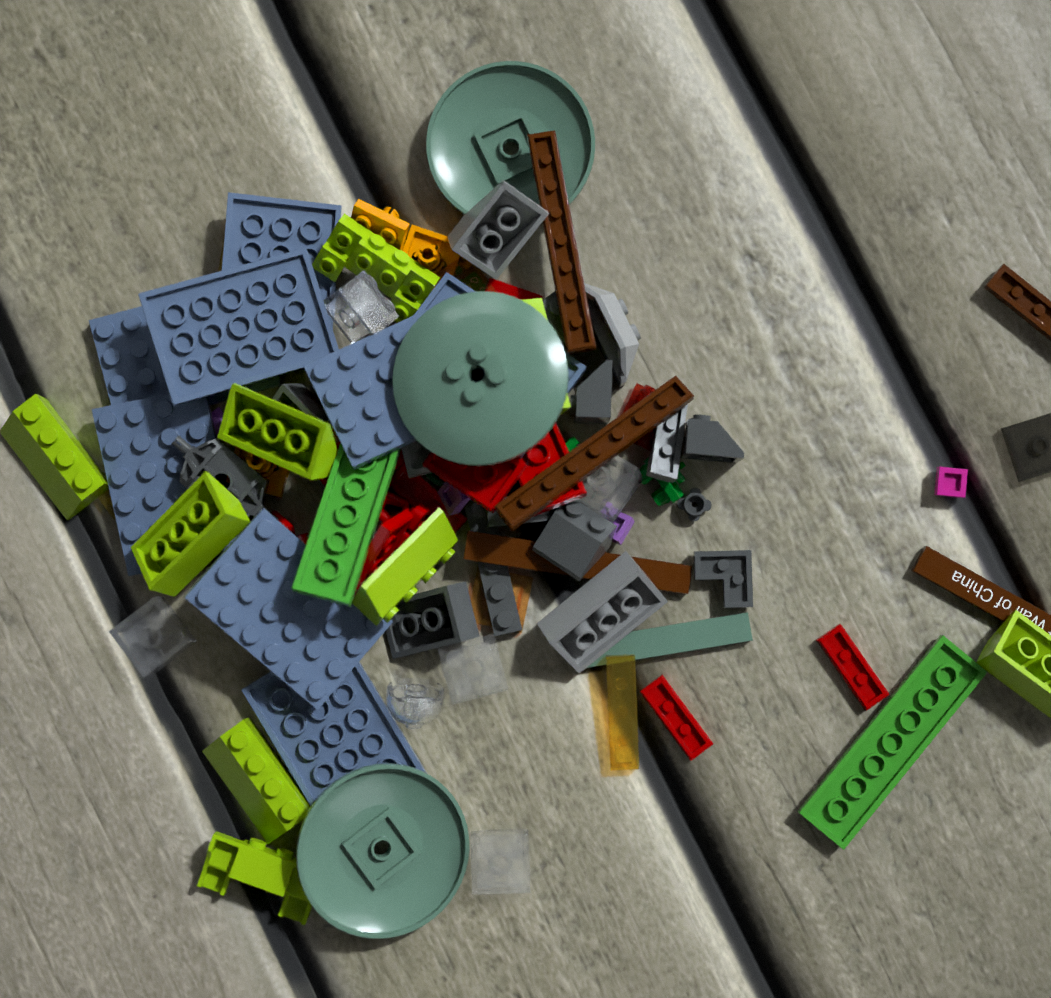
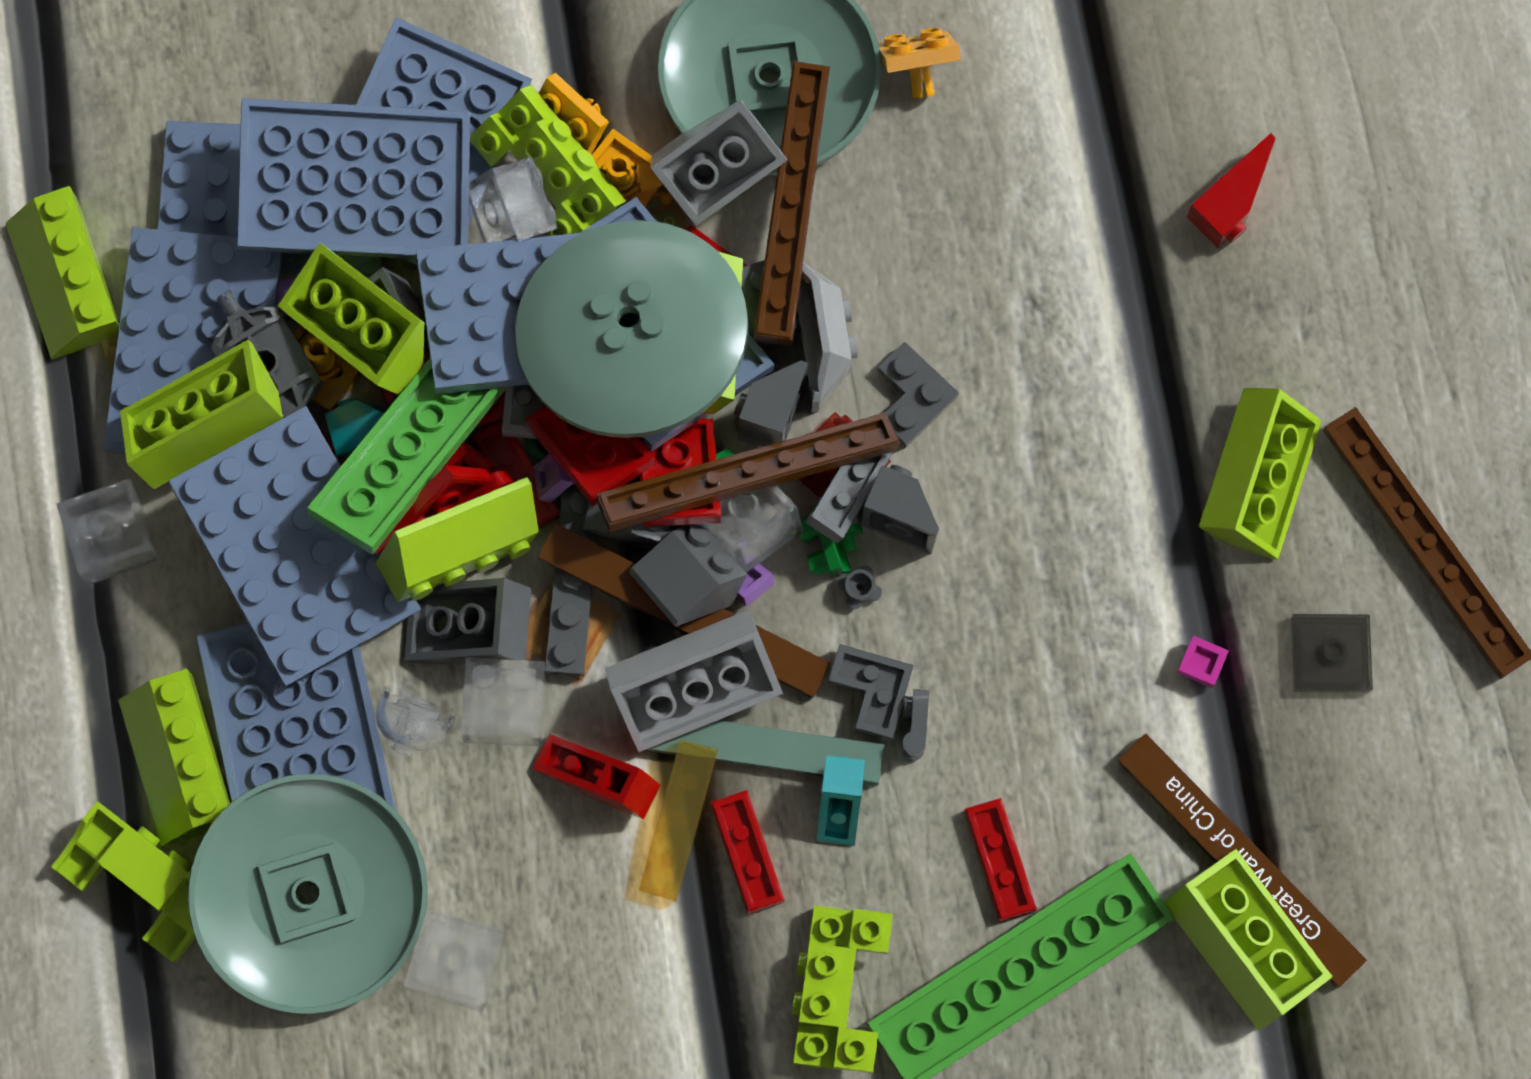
camera: 15 degrees right, 10 degrees down
(302, 503) = (351, 424): none -> teal slope
(555, 699) = (597, 776): none -> red slope
(614, 100) = (918, 55): none -> light orange plate
(693, 346) = (923, 392): none -> dark grey plate
(731, 662) = (840, 800): none -> teal slope
(763, 580) = (917, 711): none -> dark grey plate
(763, 795) = (828, 976): none -> lime bracket
(871, 135) = (1227, 203): none -> red slope
(950, 331) = (1260, 472): none -> lime slope

